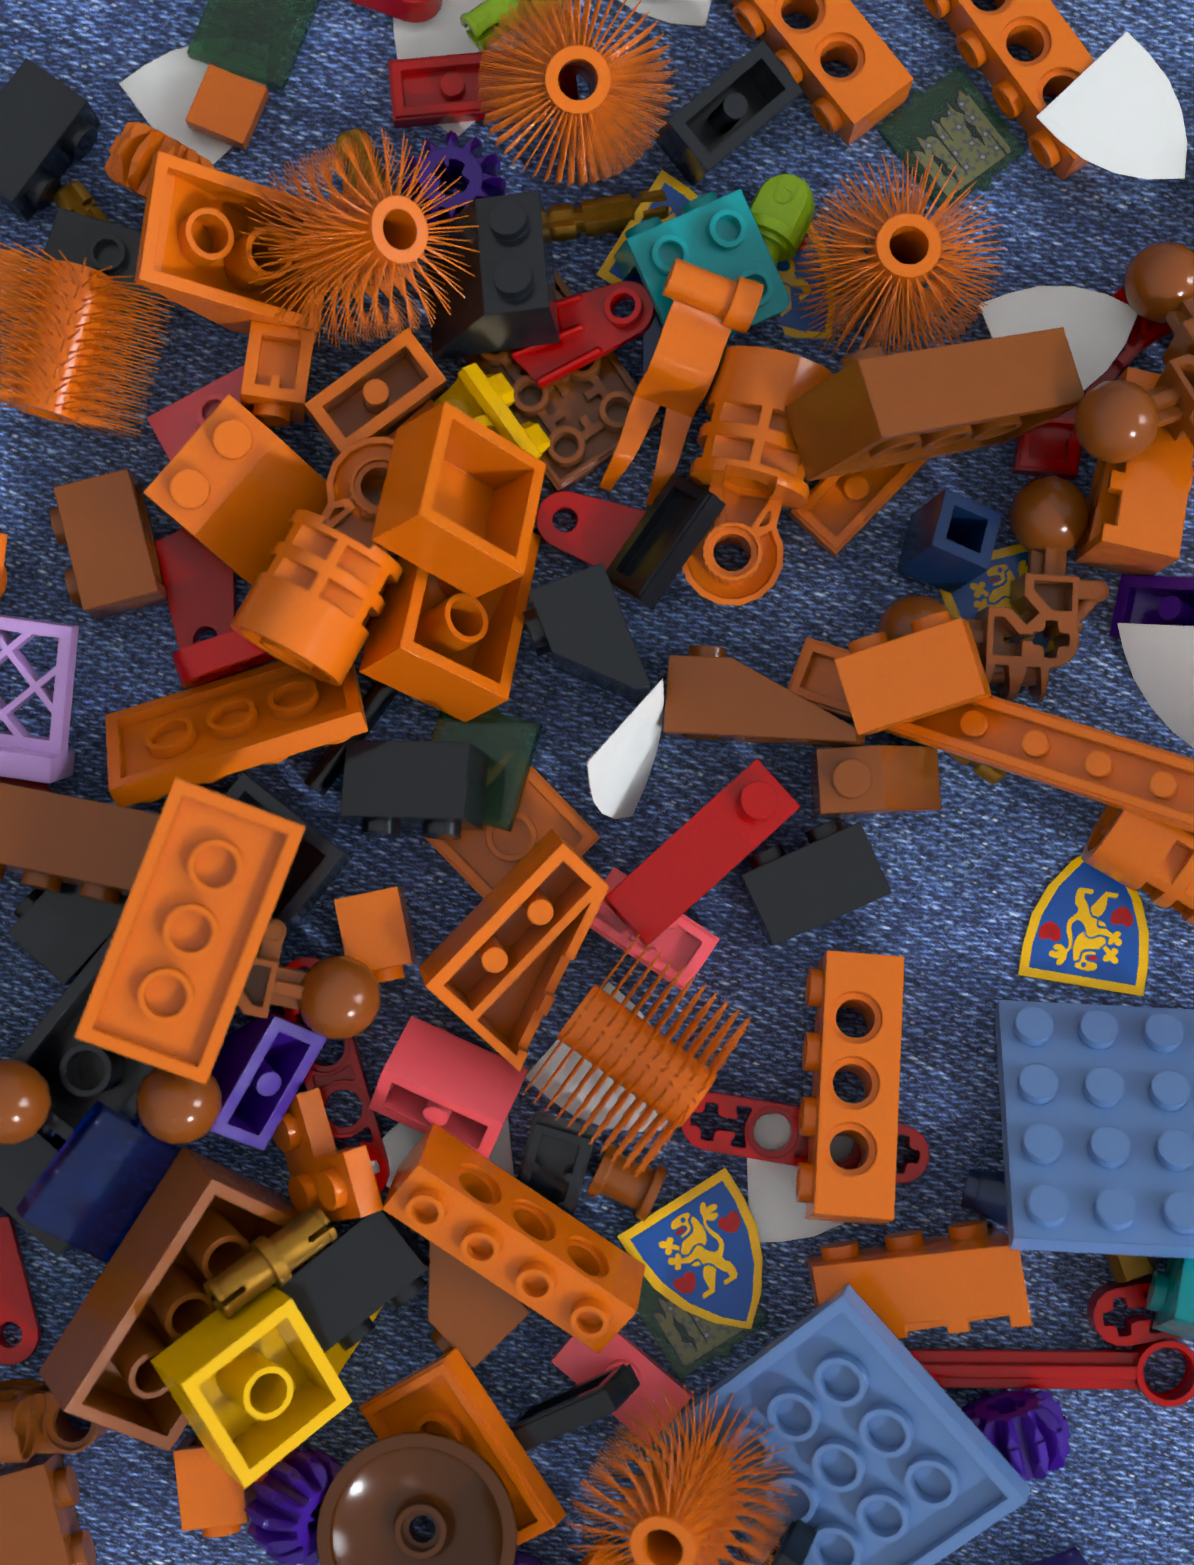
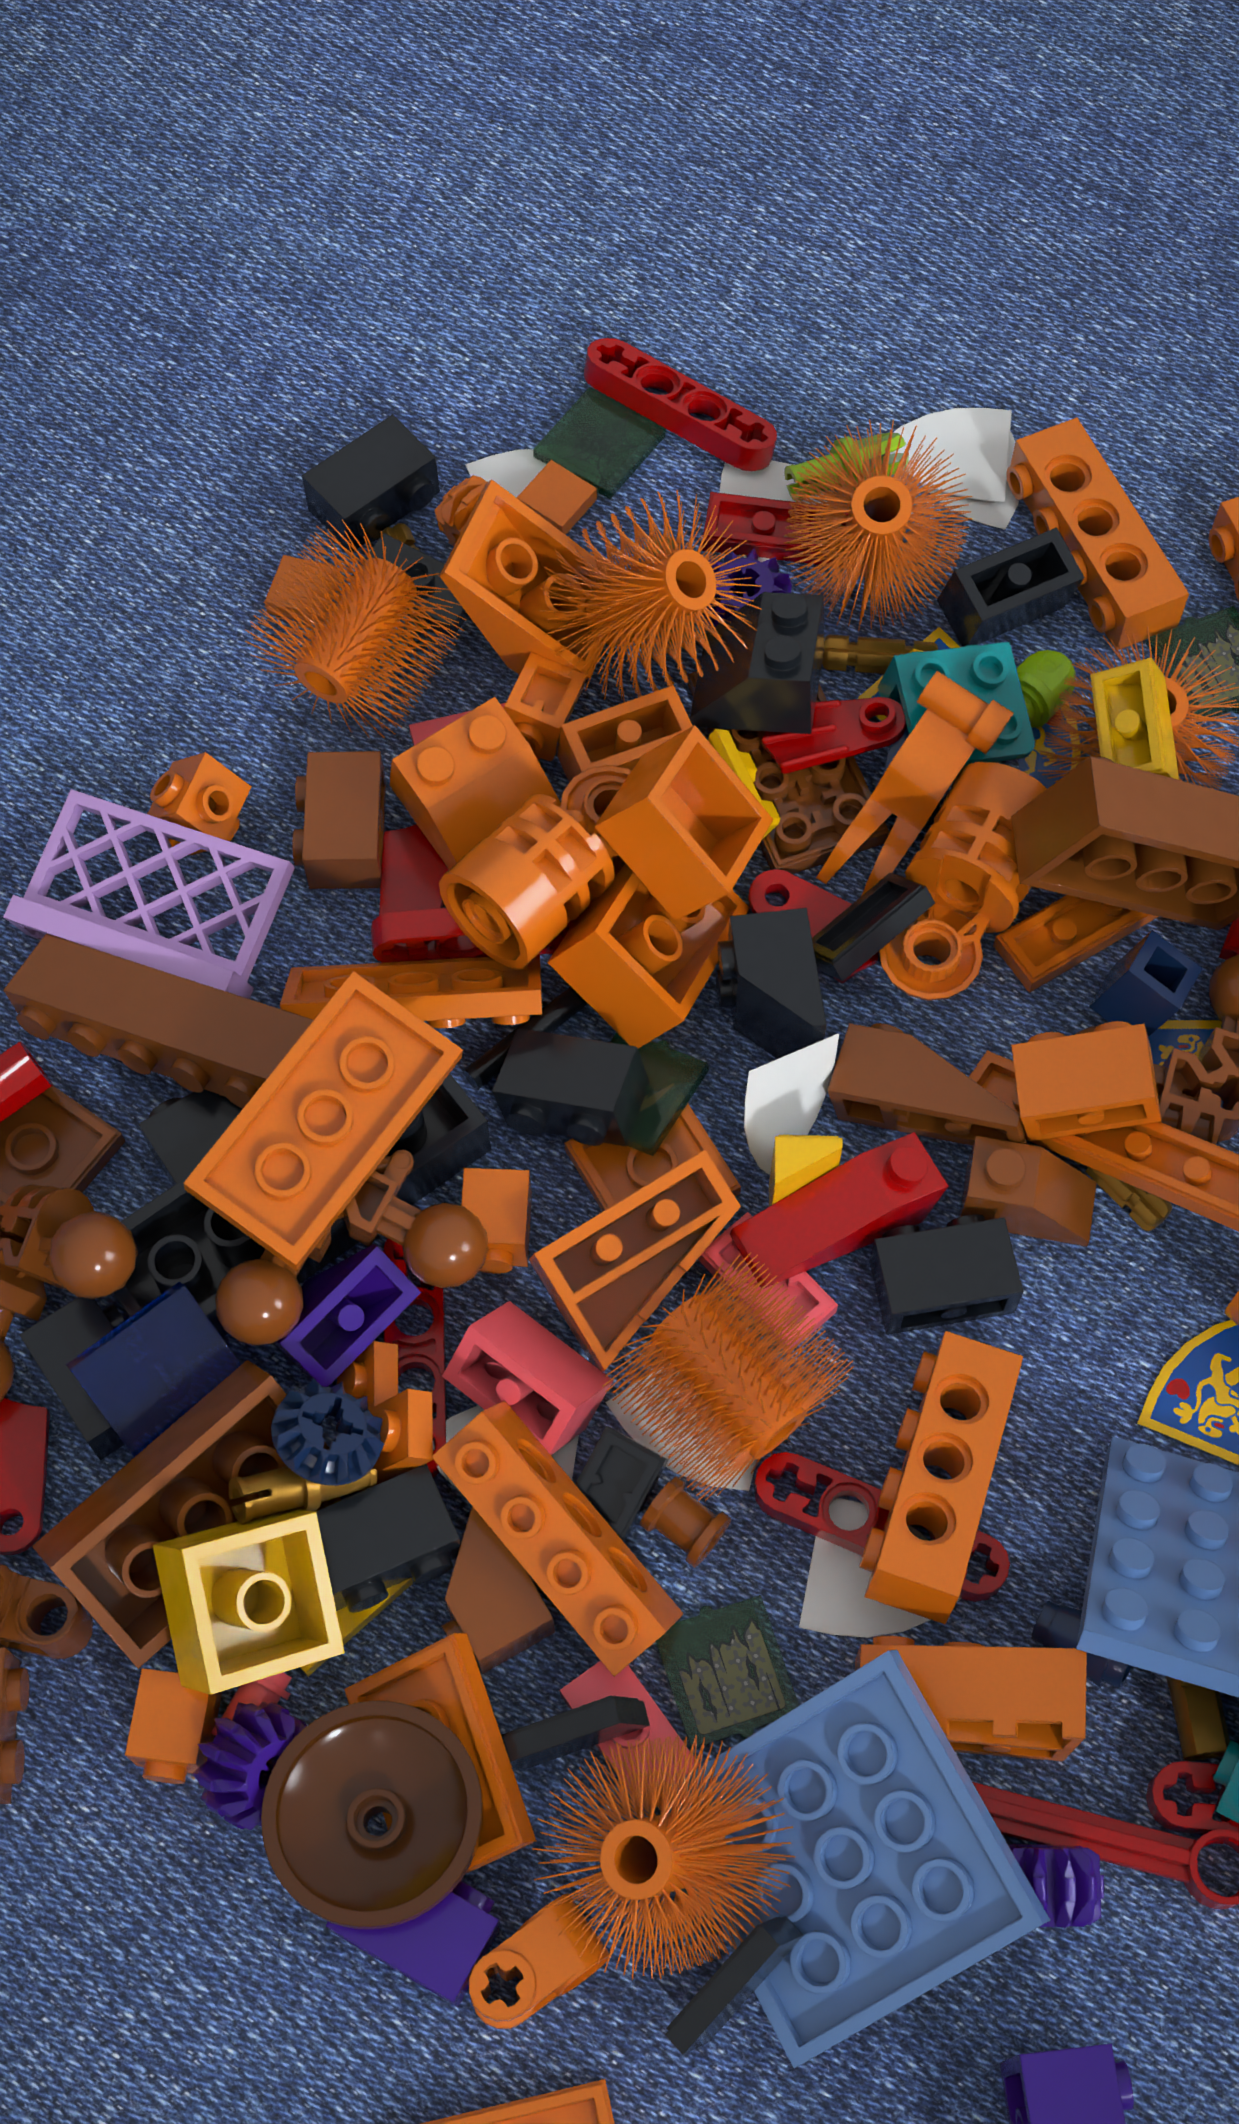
camera: 10 degrees right, 20 degrees down
(258, 1237) = (299, 1435): none -> dark blue gear
(655, 825) = (800, 1161): none -> yellow slope
(703, 1252) = (748, 1620): sticker -> none
(892, 283) = (1135, 717): none -> yellow slope

